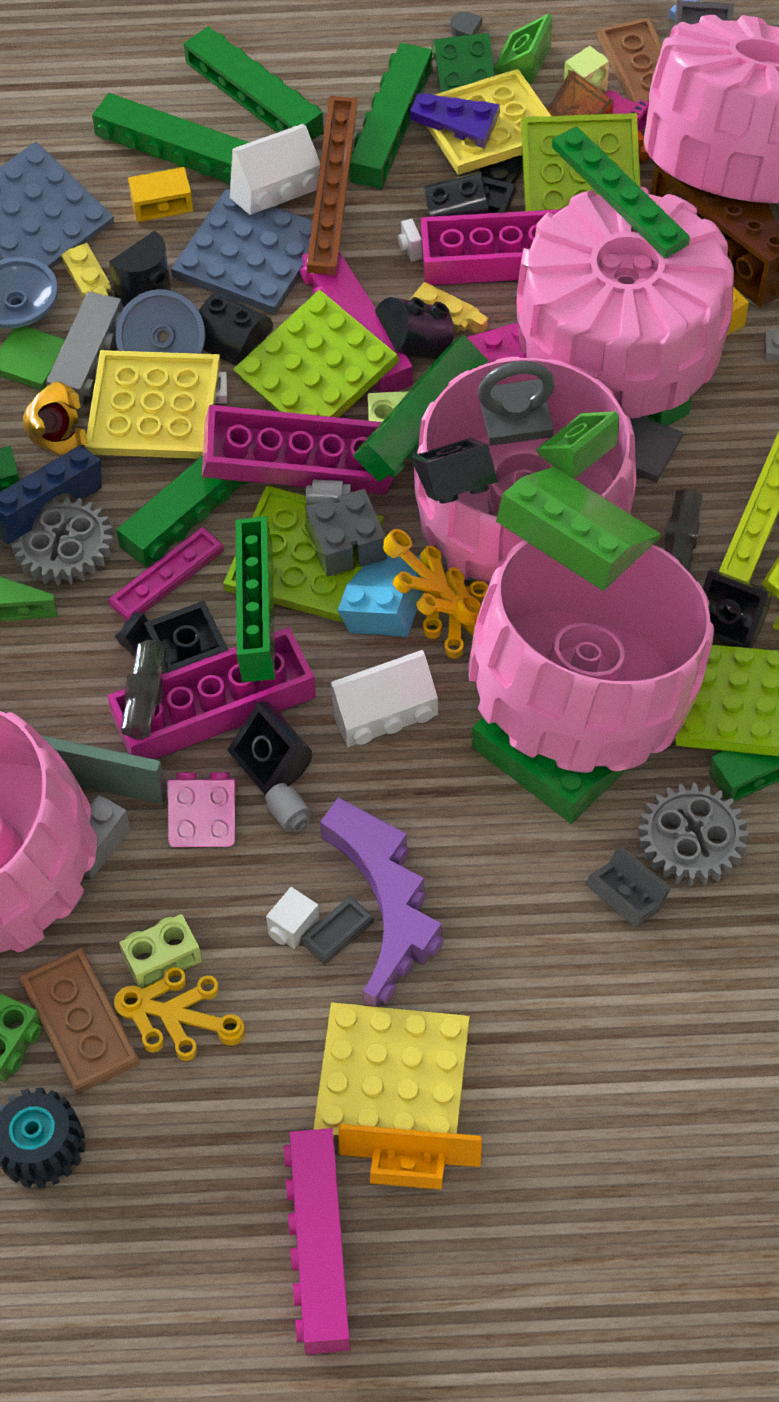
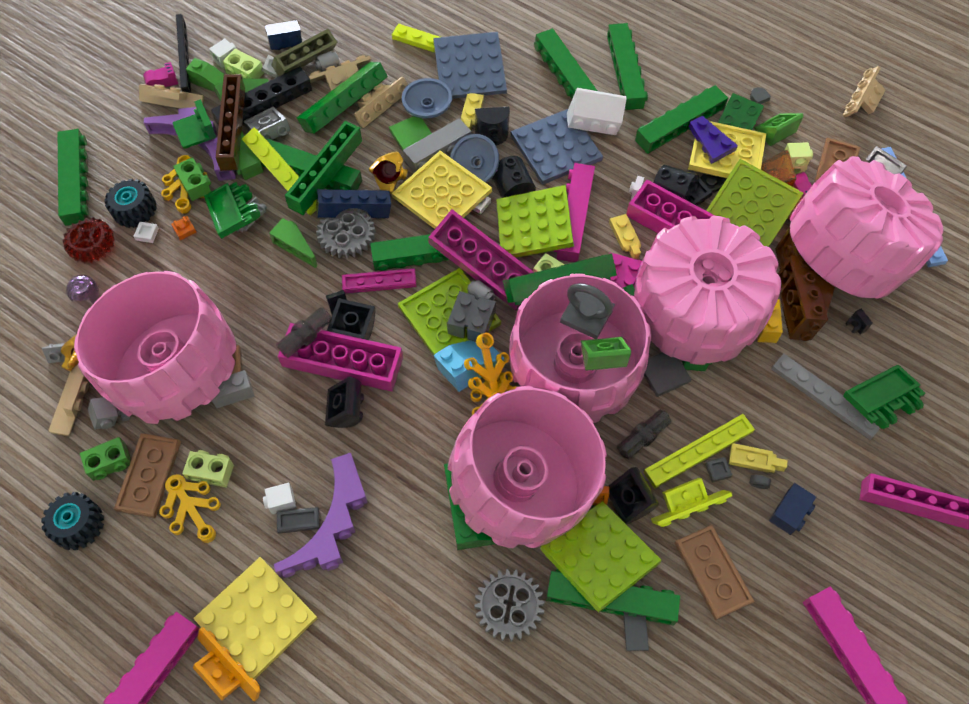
camera: 35 degrees right, 5 degrees up
(112, 770) = (258, 356): sand green tile -> none
(160, 194) = (536, 92): yellow brick -> none
(202, 810) = (290, 409): bracket -> none
(254, 600) = (392, 323): green brick -> none
(288, 808) = (328, 439): light grey brick -> none
(332, 186) = (616, 136): dark orange plate -> none
(384, 699) = (417, 417): white slope -> none
(416, 326) = (598, 234): black brick -> none
(455, 469) = (526, 323): black slope -> none
(574, 525) = (562, 397): bright green slope -> none
(620, 192) = (741, 230): green plate -> none
(629, 887) = (450, 609): dark grey bracket -> none

